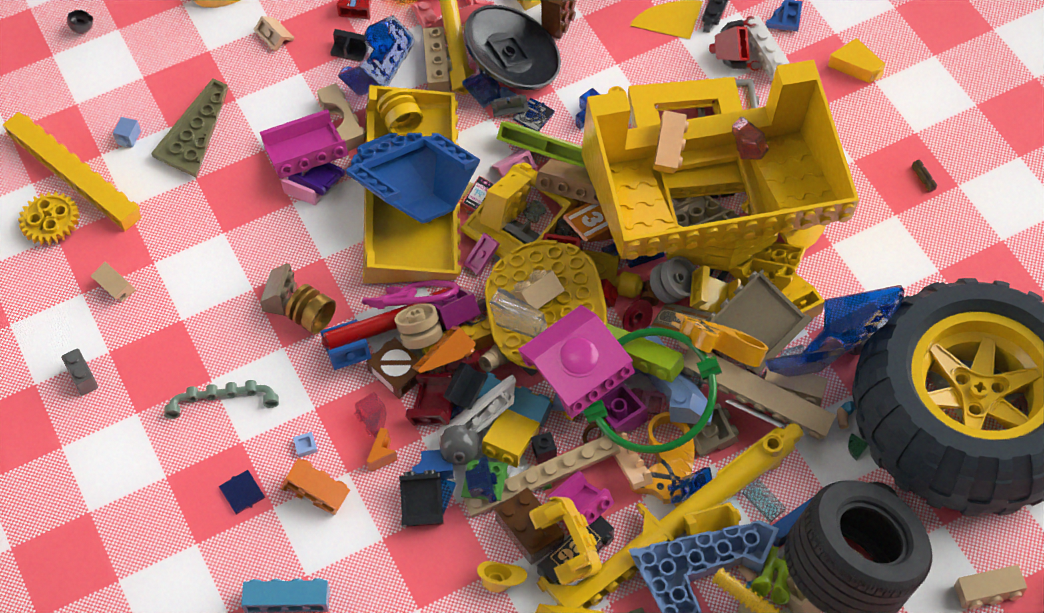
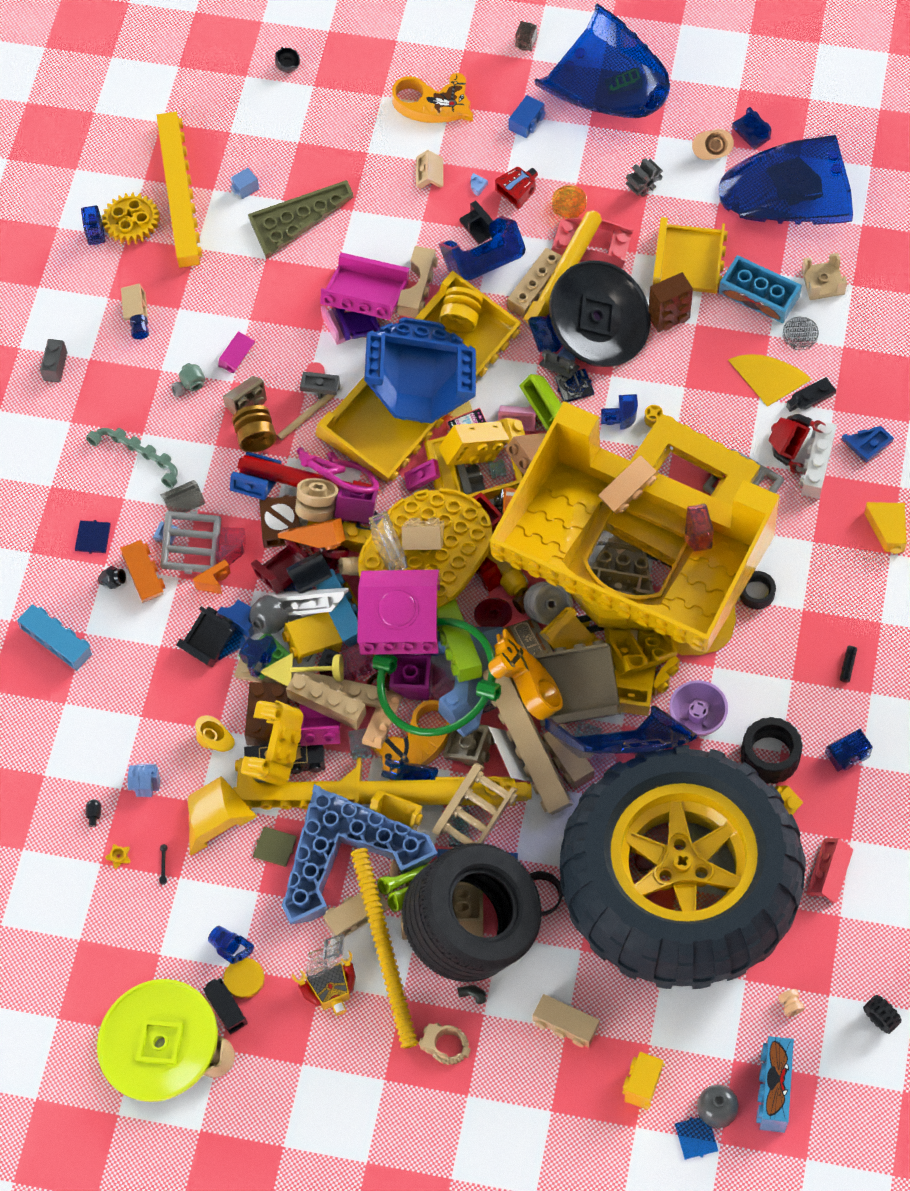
camera: 40 degrees right, 5 degrees up
(21, 242) = (93, 225): none -> clear blue brick
(133, 297) = (139, 327): none -> clear blue wheel
(211, 324) = (177, 389): none -> light grey hinge
(217, 306) = (192, 377): none -> sand green head
(238, 263) = (235, 352): none -> dark pink hinge
(291, 511) = (112, 577): none -> black rock
(295, 406) = (183, 497): none -> clear smoke panel
(317, 235) = (316, 368): none -> coral tile
(320, 454) = (167, 548): none -> light grey bar
(321, 20) = (478, 184): none -> light blue tile
(333, 239) = (320, 383): none -> dark grey panel
(341, 270) = (303, 417): none -> tan bar
(514, 480) = (282, 670): none -> light yellow piece
(564, 431) = (356, 664): none -> clear pink slope
(575, 476) = (326, 701): none -> tan brick
(625, 495) = (356, 747): none -> clear light blue panel
(758, 484) = (465, 792): none -> tan fence
(806, 270) = (663, 678): none -> yellow slope
(858, 273) = (702, 700): none -> lavender piece
(936, 252) = (777, 729): none -> black tyre
(987, 233) = (849, 750): none -> clear blue brick

